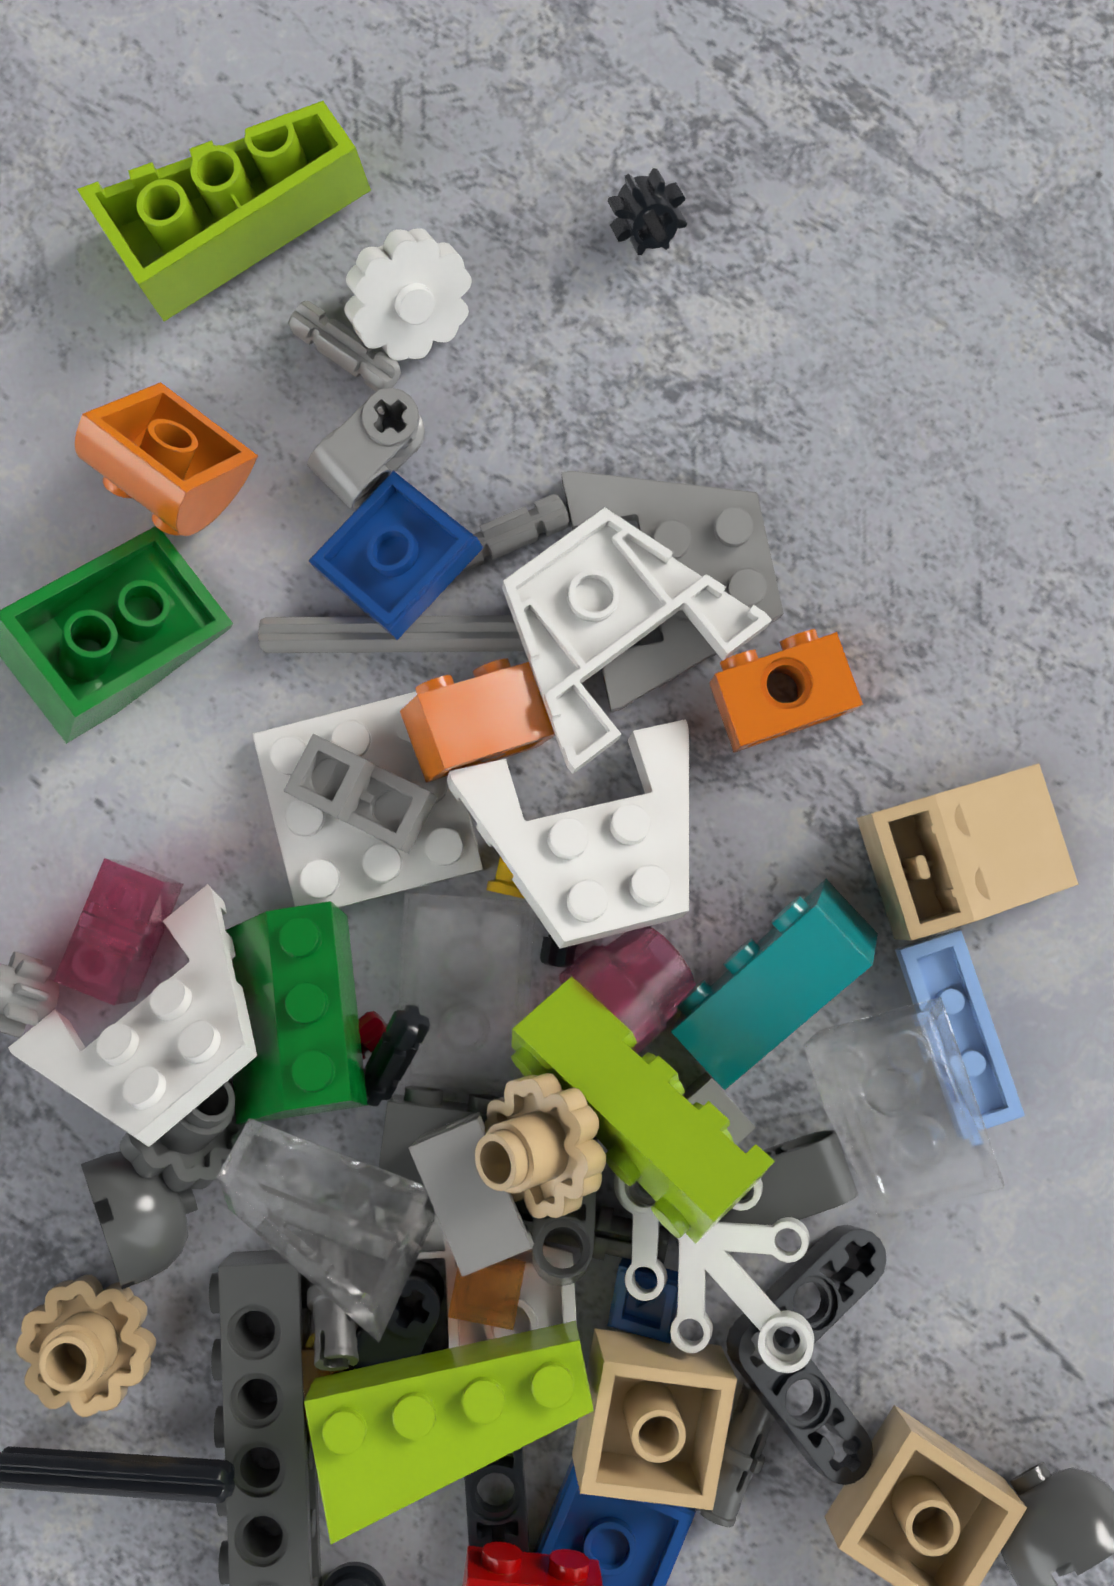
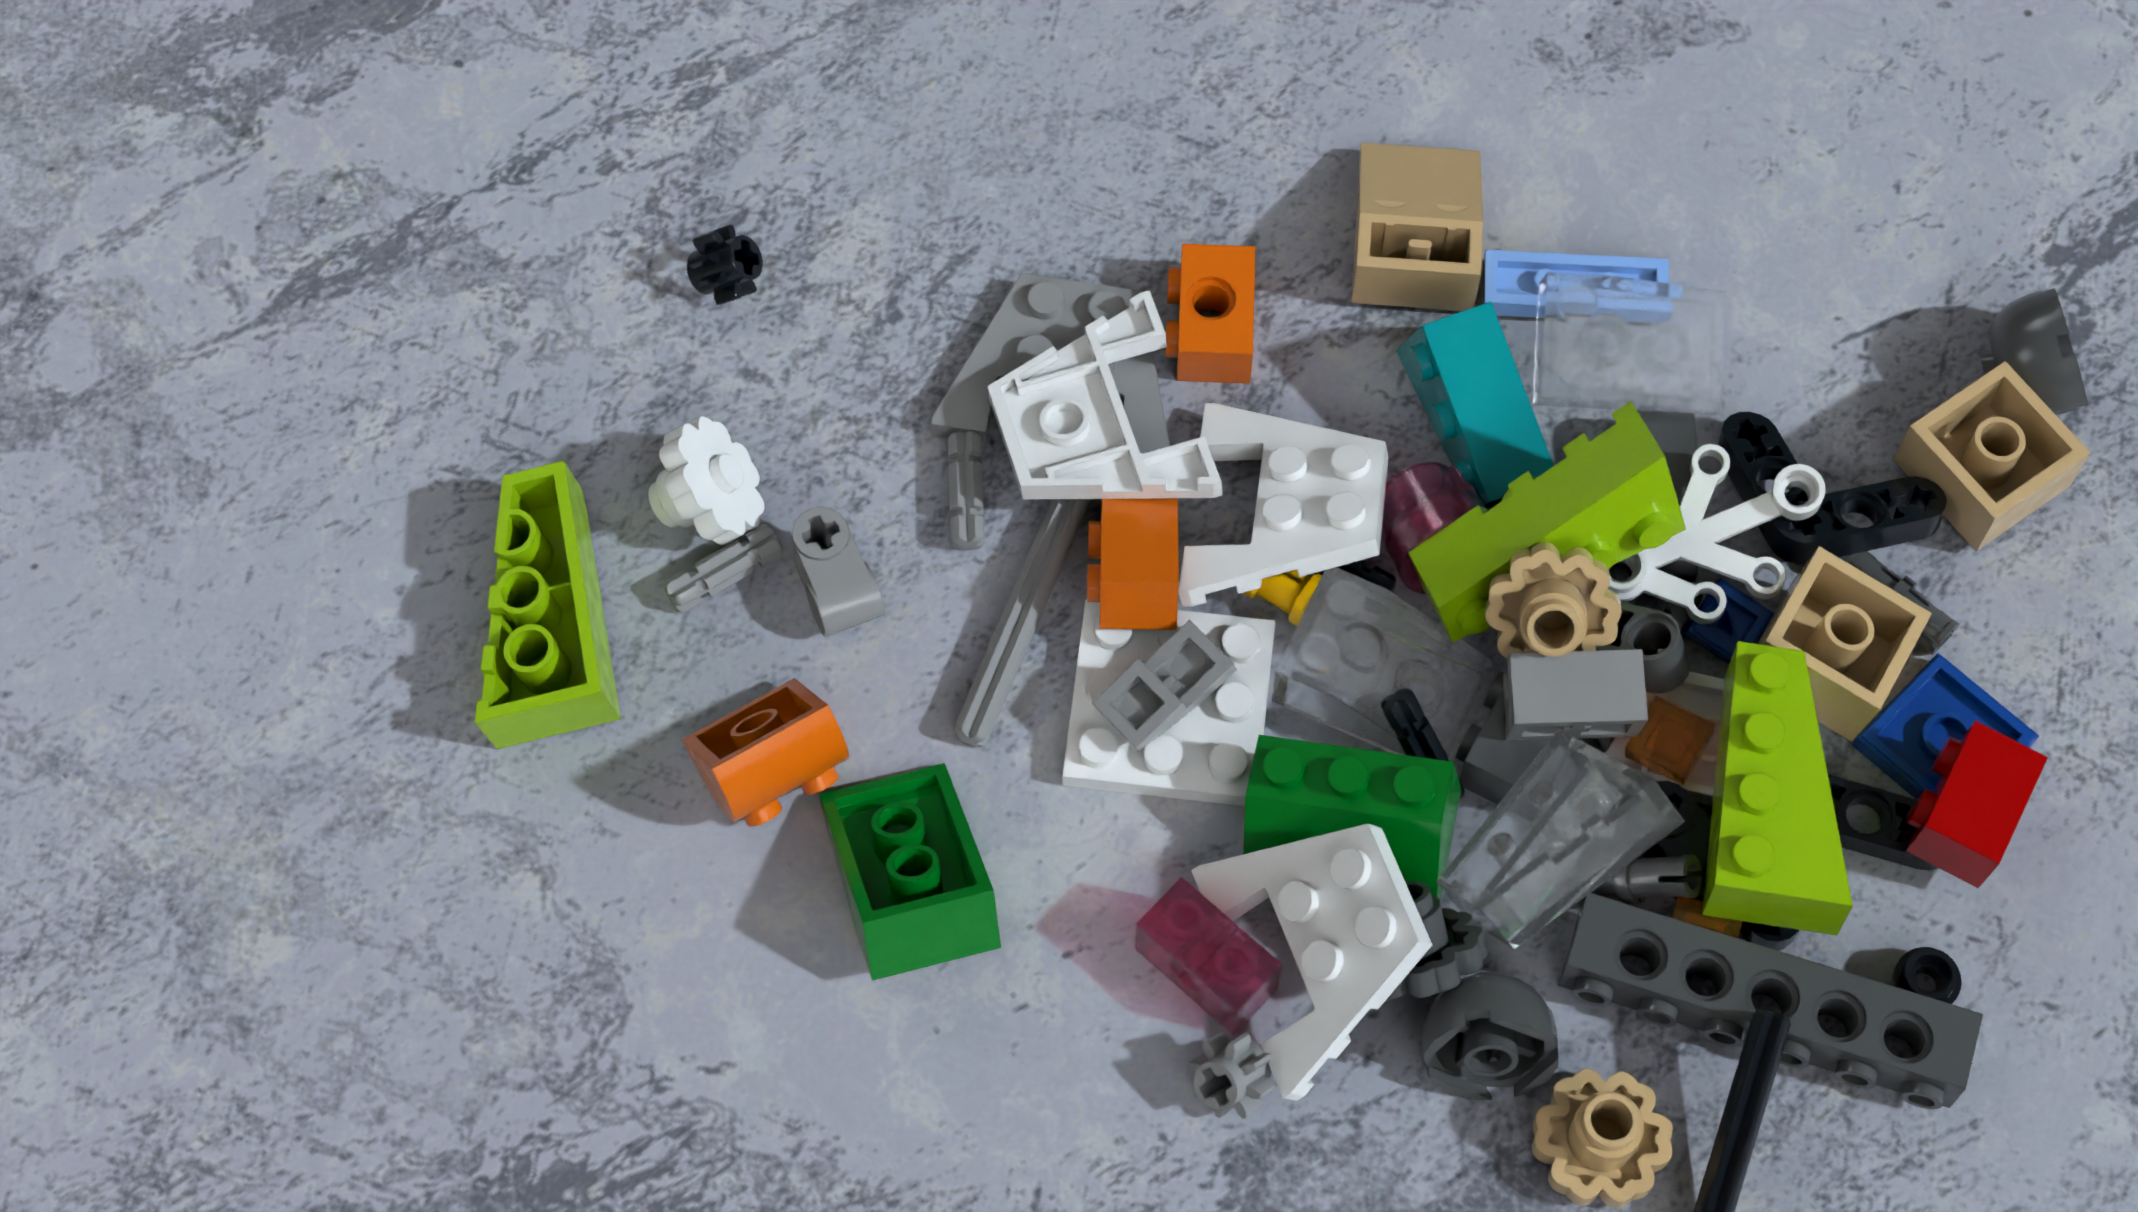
camera: 70 degrees left, 20 degrees down
(396, 554) = (947, 587): blue tile -> none

